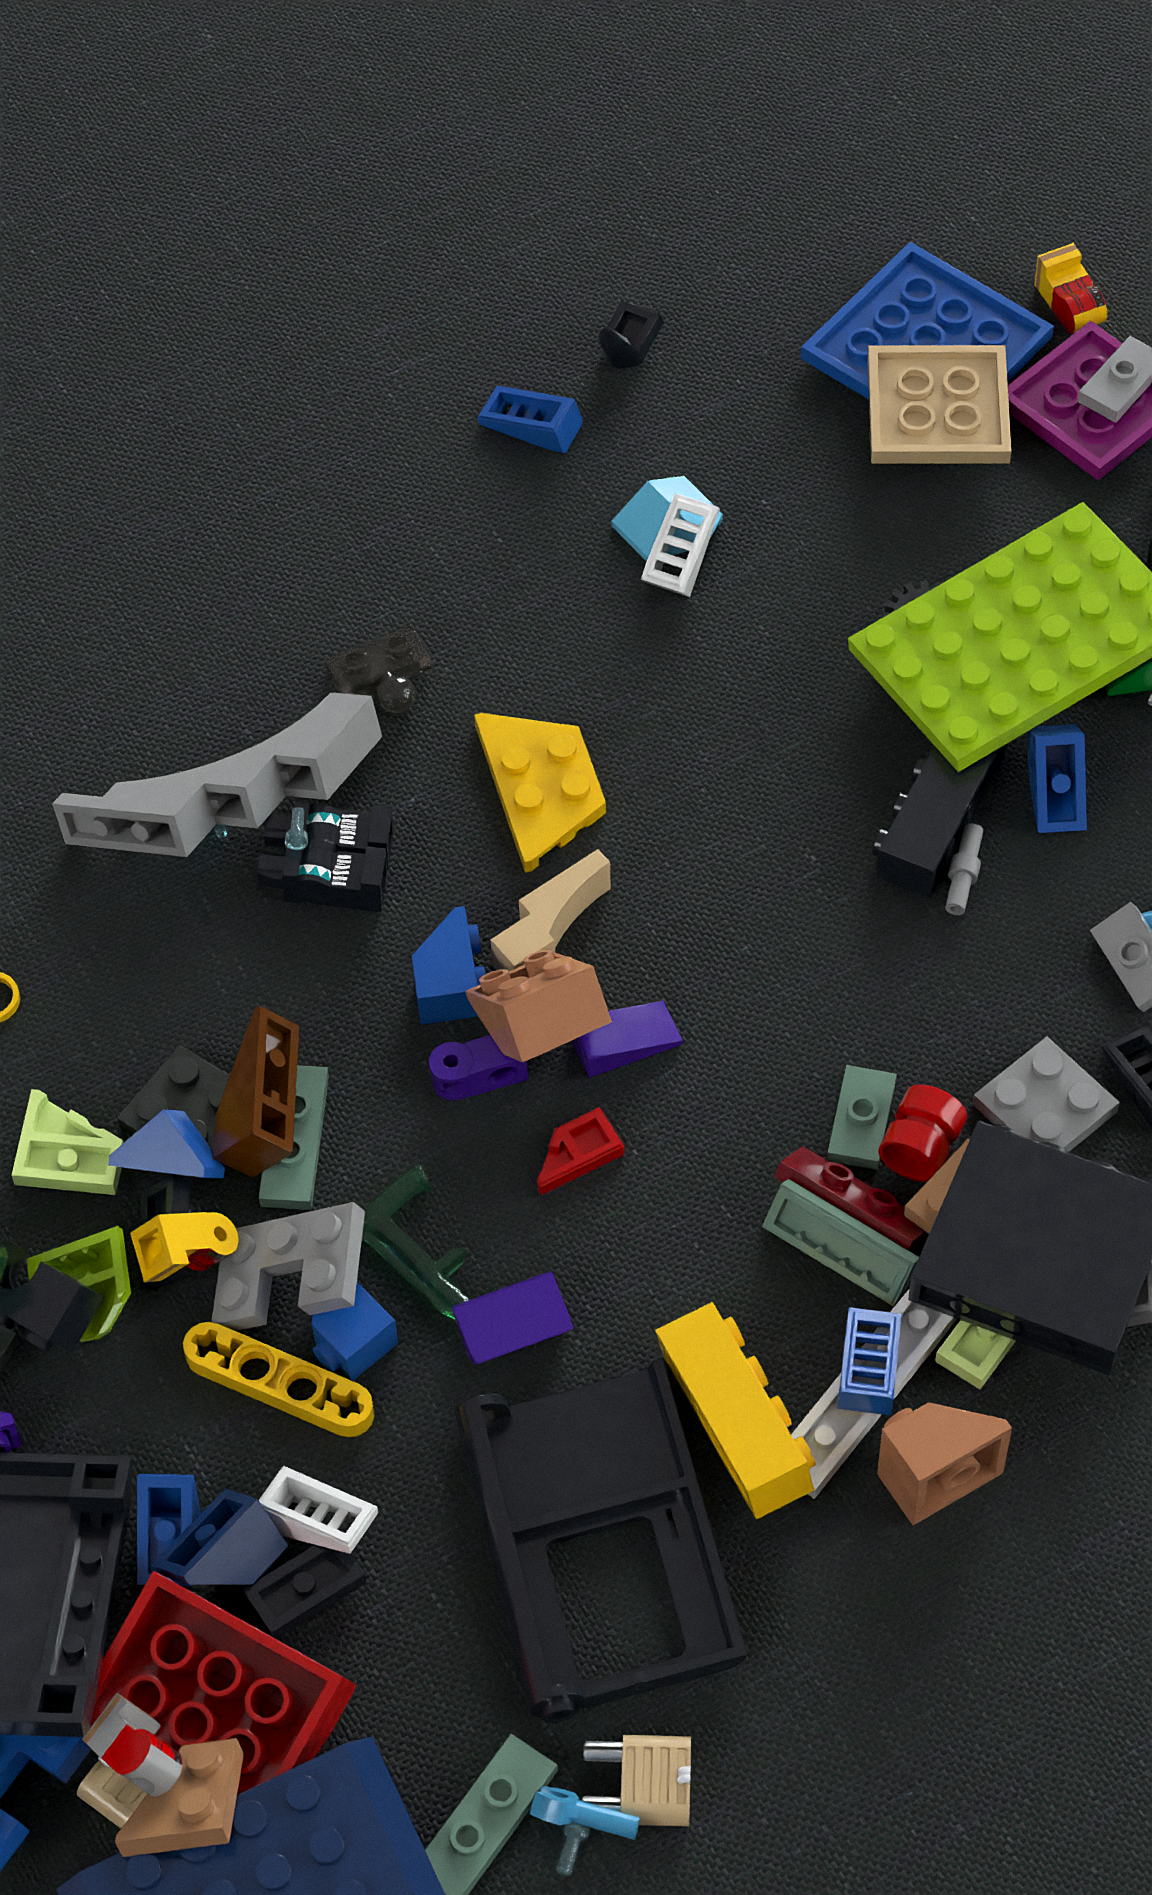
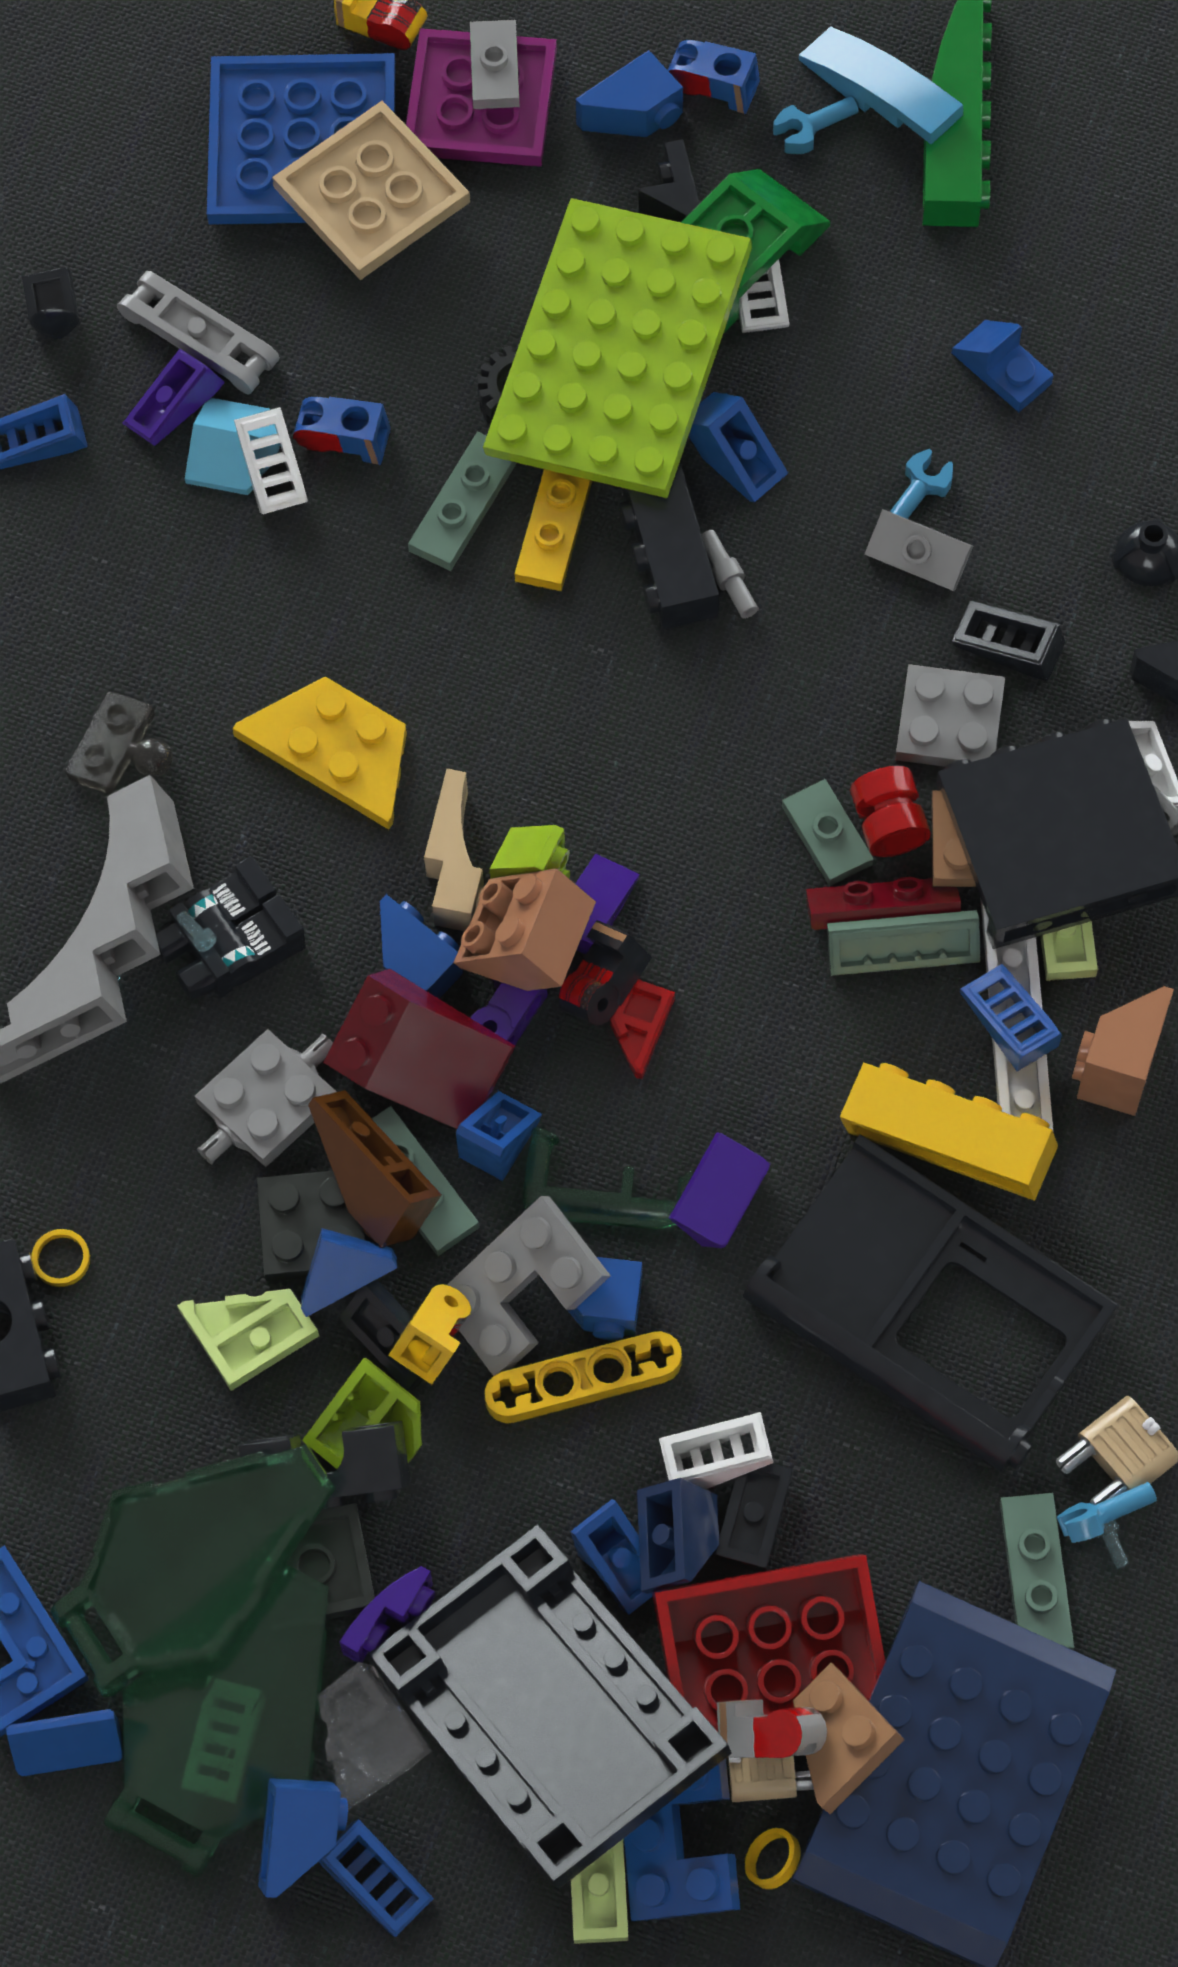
camera: 40 degrees left, 10 degrees up
(54, 1852) = (788, 1869): none -> yellow piece
(234, 983) = (263, 1098): none -> light grey plate
(378, 1035) = (418, 1050): none -> dark red slope
(385, 1145) = (496, 1134): none -> blue slope
(575, 1091) = (604, 975): none -> black leg
(611, 958) = (531, 851): none -> lime slope
(655, 457) = (173, 397): none -> dark purple slope
(720, 425) = (198, 331): none -> light grey plate
(764, 562) = (343, 427): none -> blue leg
(799, 679) = (460, 505): none -> sand green plate
(855, 744) = (552, 530): none -> yellow plate

